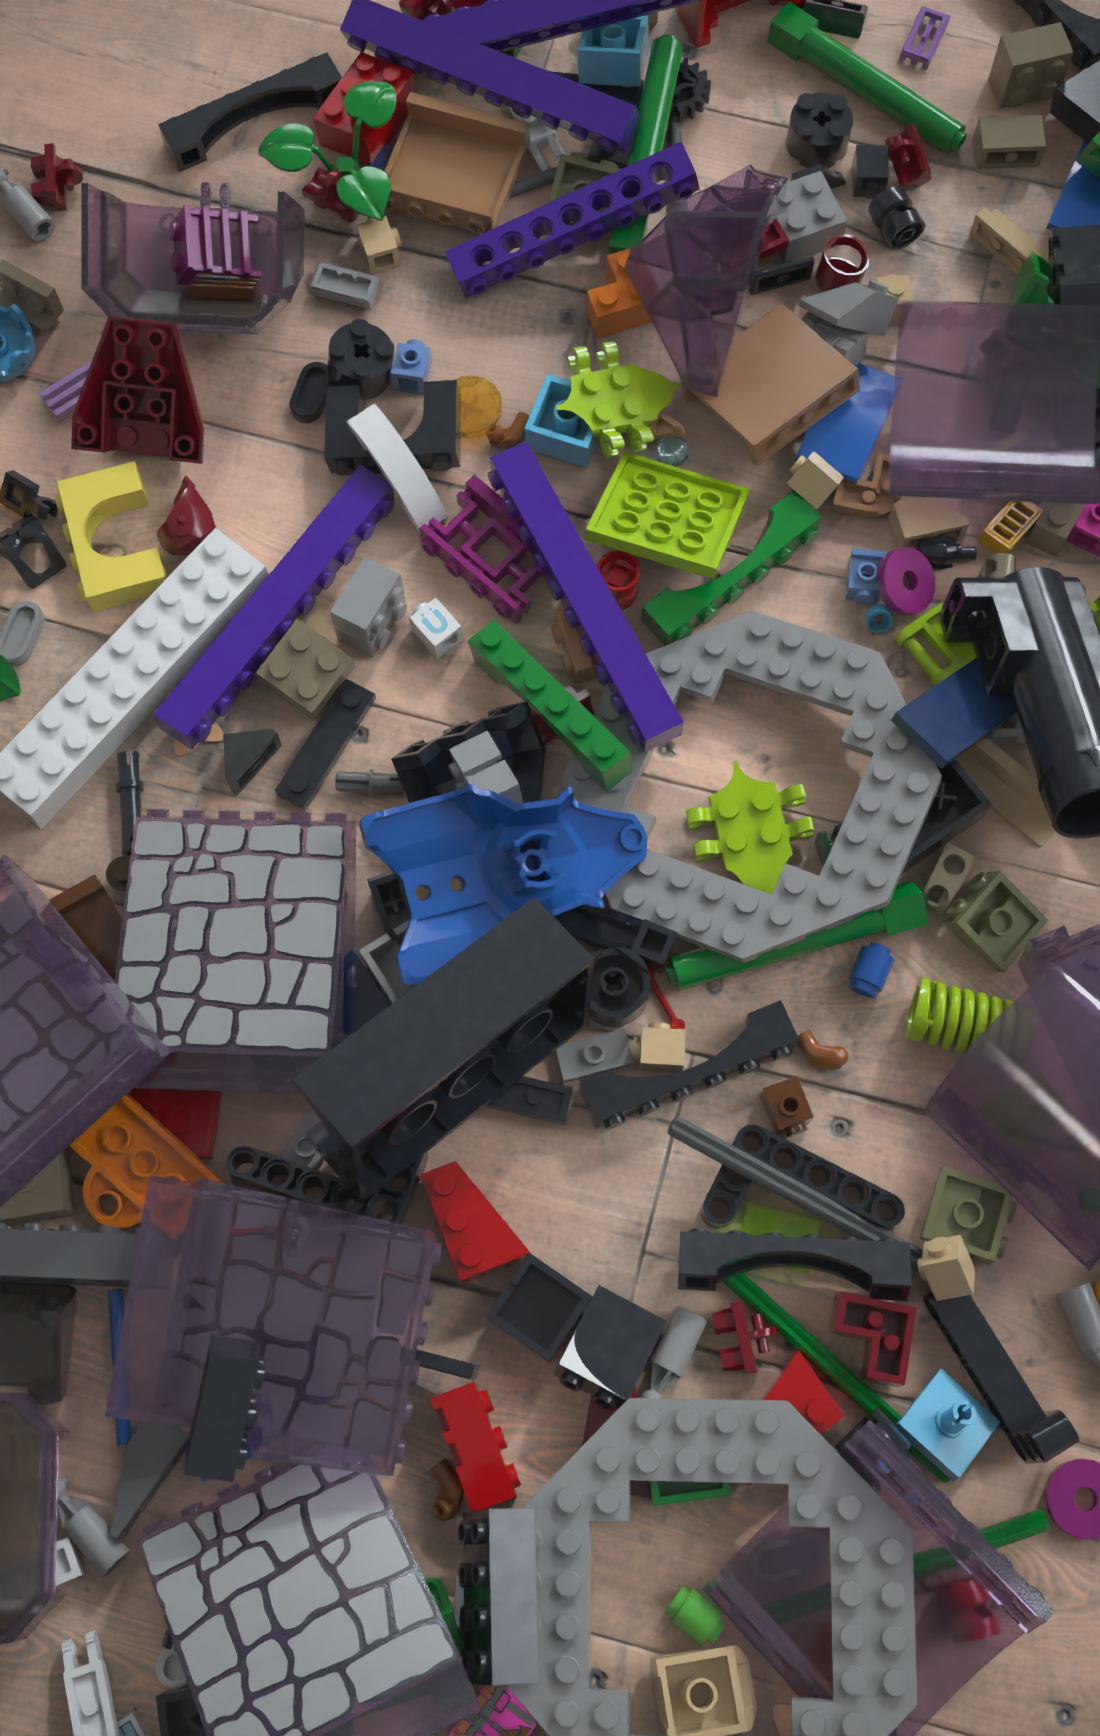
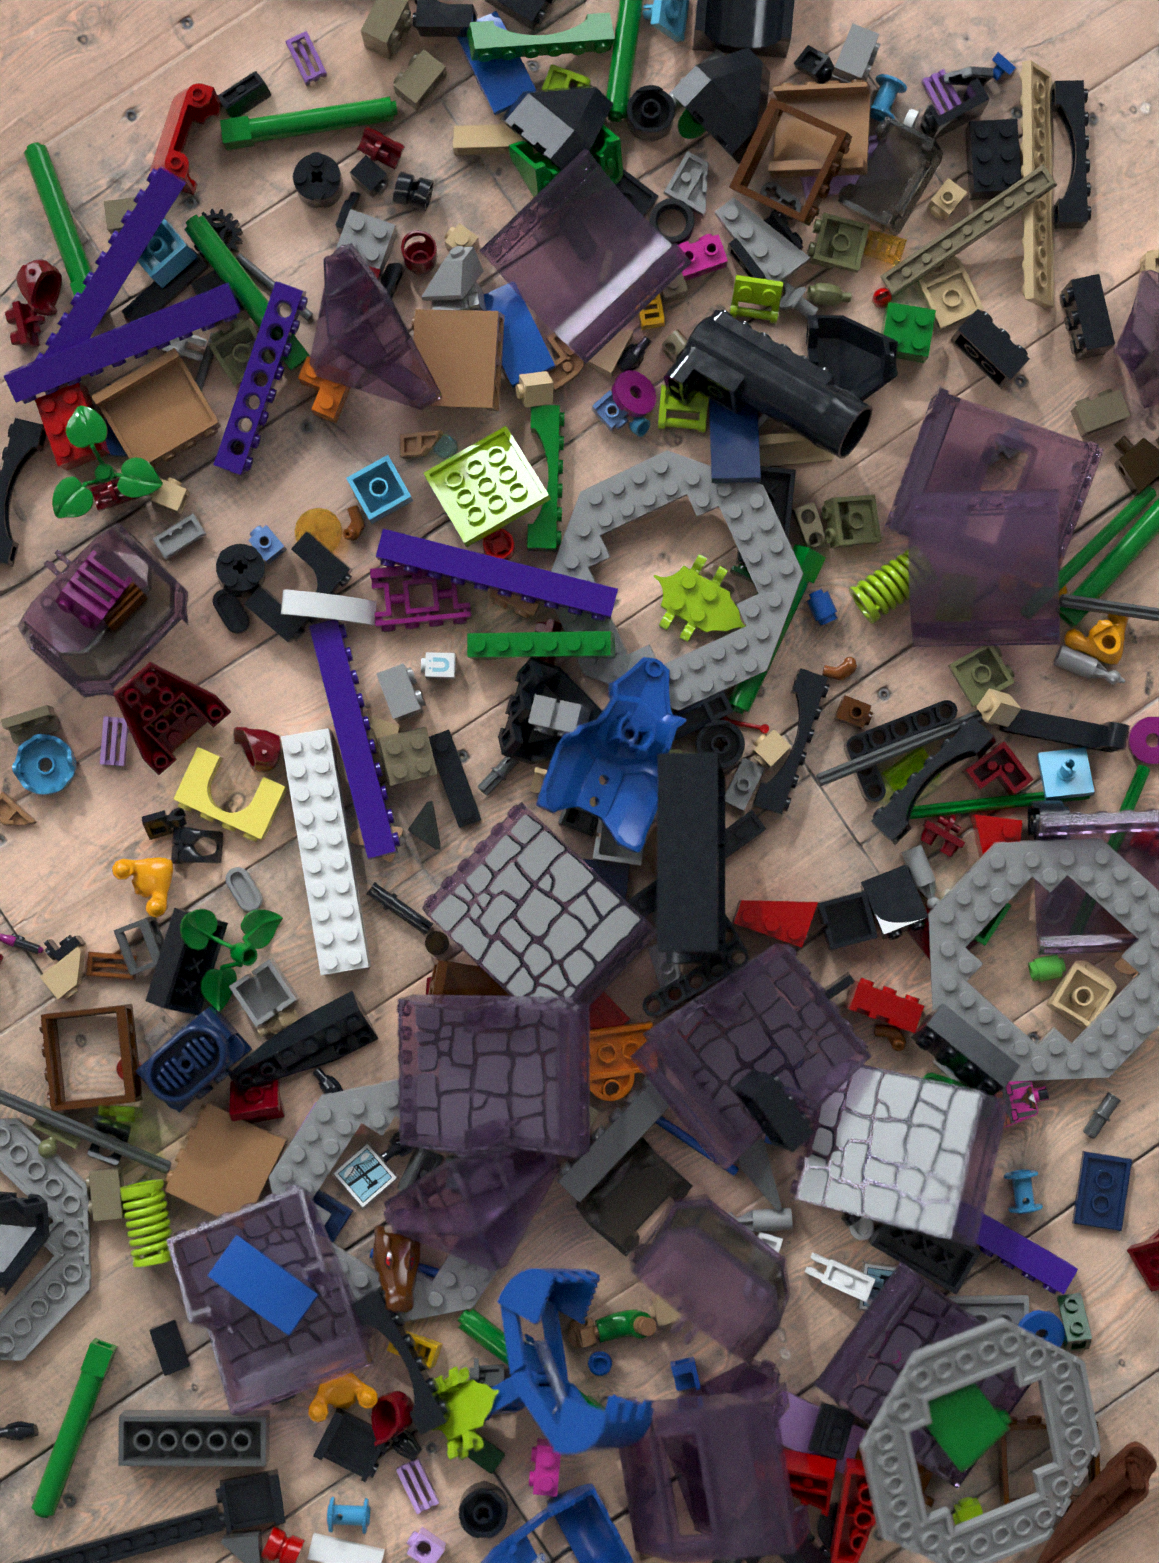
camera: 50 degrees left, 15 degrees up
(616, 398) = (393, 452): lime animal -> none

